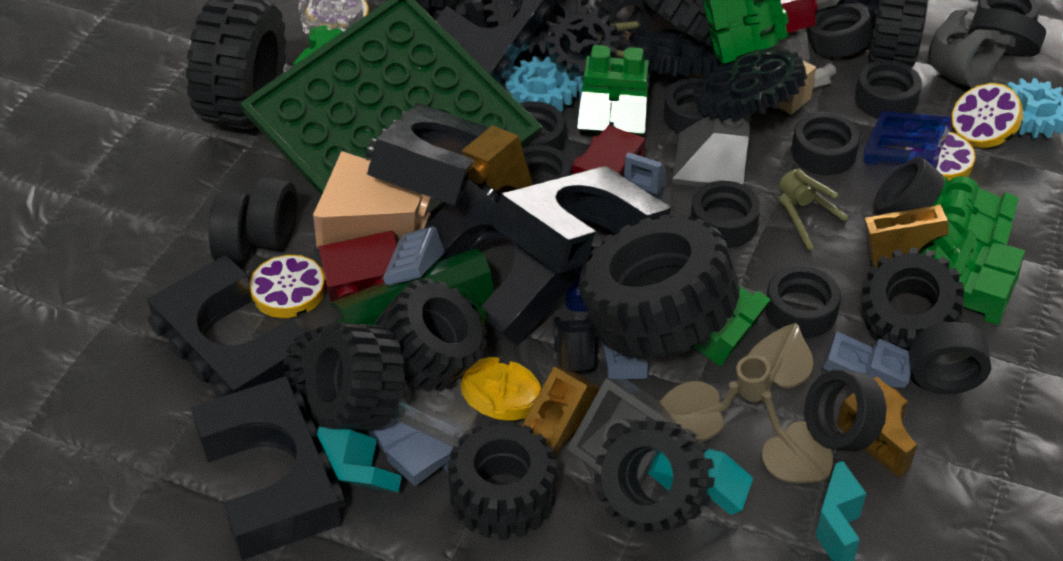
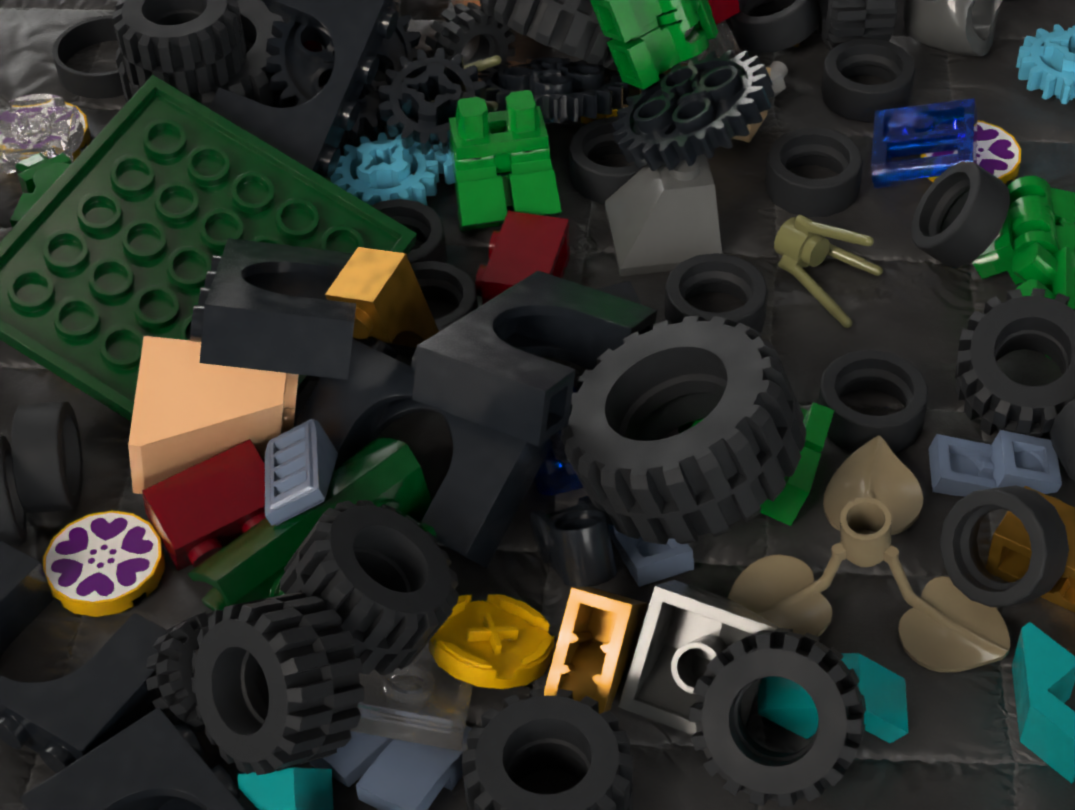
camera: 15 degrees left, 0 degrees up
(645, 173) = (592, 267): sand blue slope -> none
(904, 231) = (976, 272): pearl gold arch -> none
(987, 115) = (1016, 85): tile -> none

